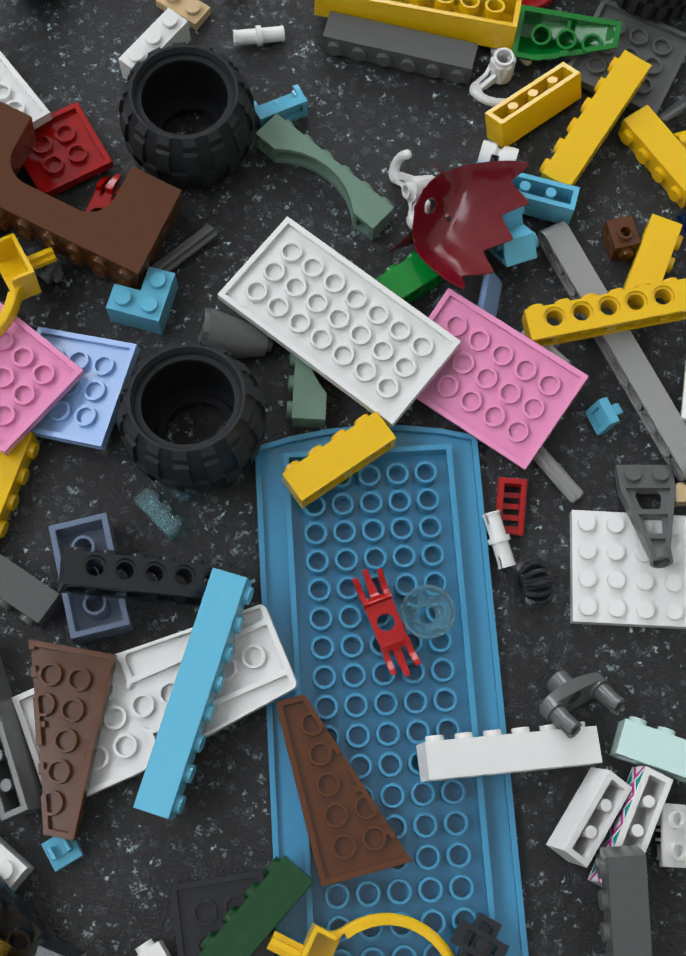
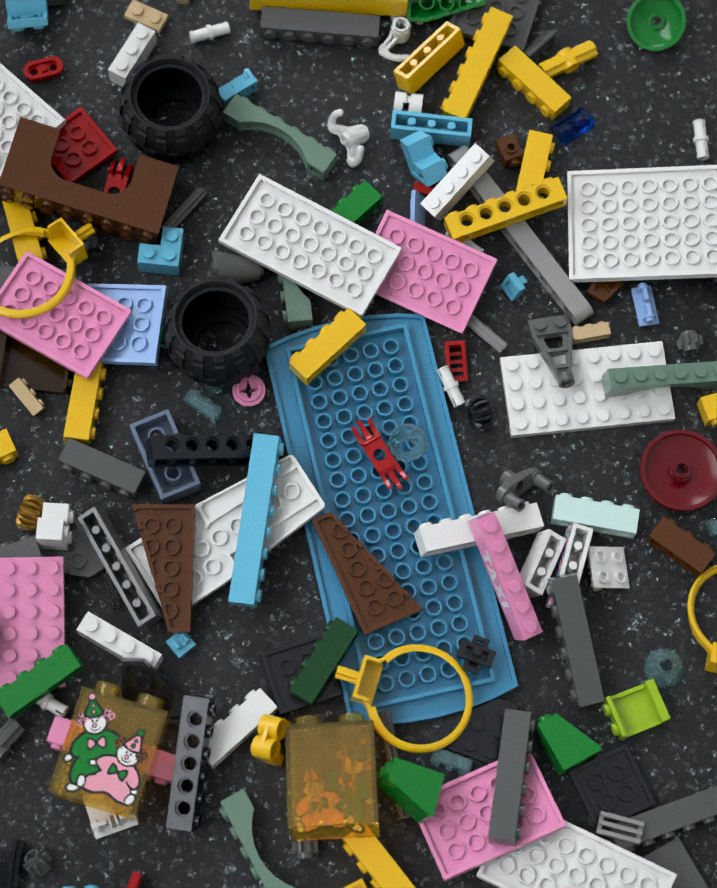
camera: 10 degrees left, 0 degrees up
(41, 50) = (43, 69): none -> red plate
(233, 512) = (256, 384): none -> bright pink gear
(475, 201) = (397, 142): dark red piece -> none
(499, 268) = (420, 187): none -> red tile
(537, 833) = (505, 576): none -> bright pink brick
(548, 266) = (457, 182): none -> white brick

